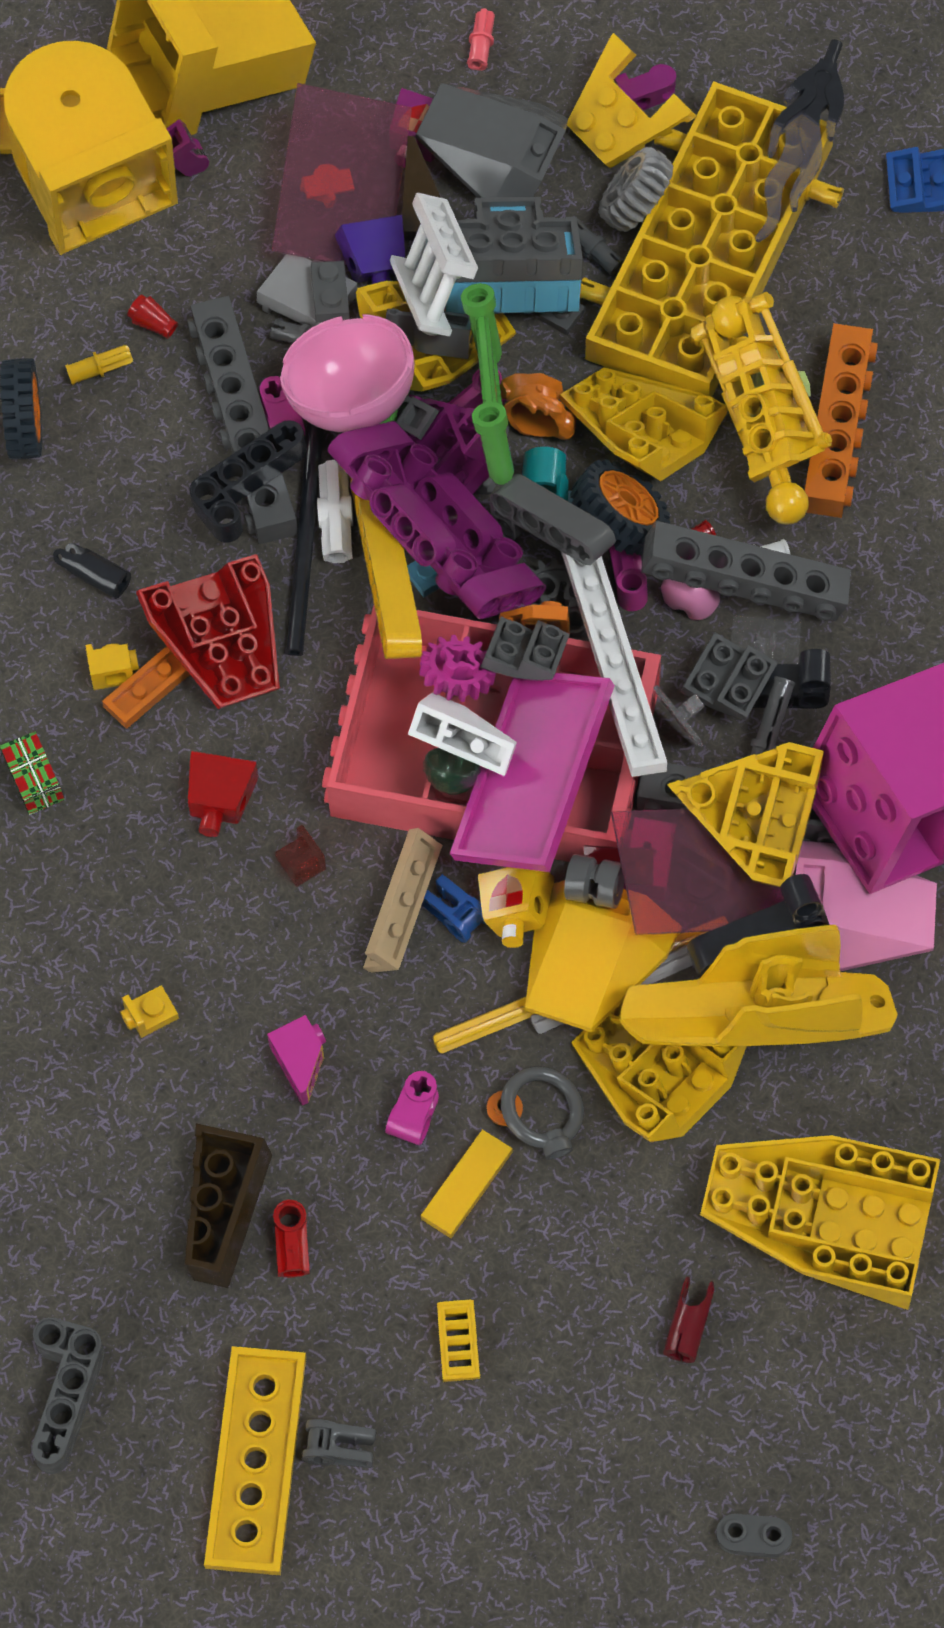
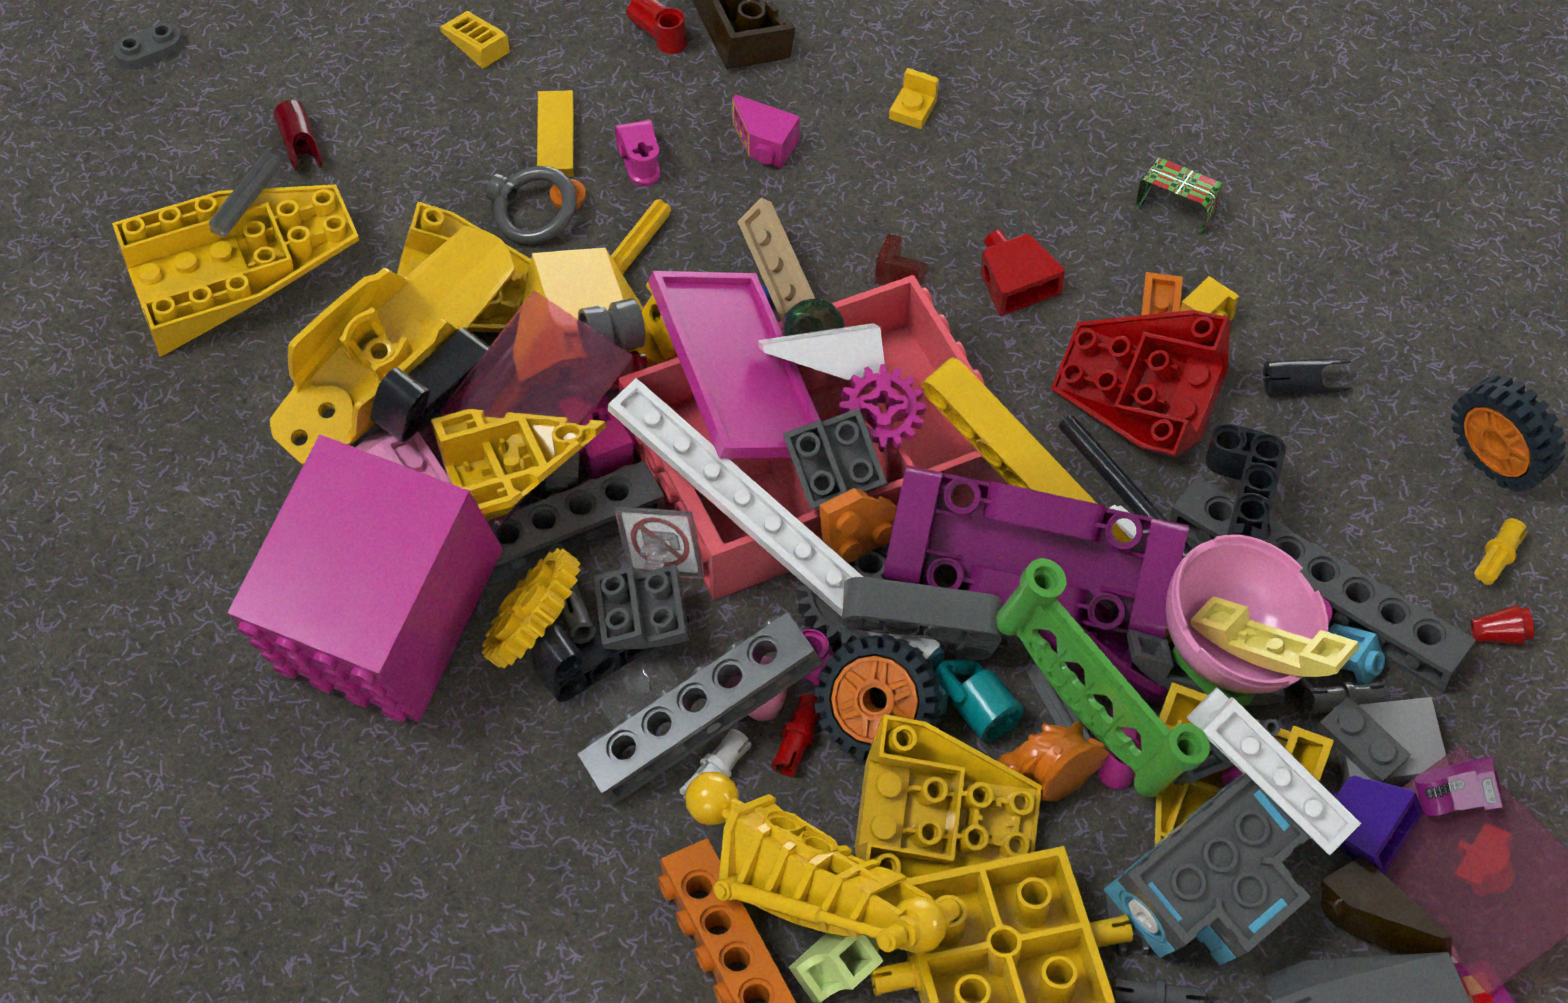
camera: 140 degrees right, 10 degrees down
(266, 359) = (1368, 659): none -> medium azure bracket
(309, 212) = (1459, 787): none -> magenta leg
(342, 343) = (1269, 647): none -> light yellow slope
(785, 1242) = (244, 194): none -> dark grey axle
(826, 688) = (531, 608): none -> yellow gear

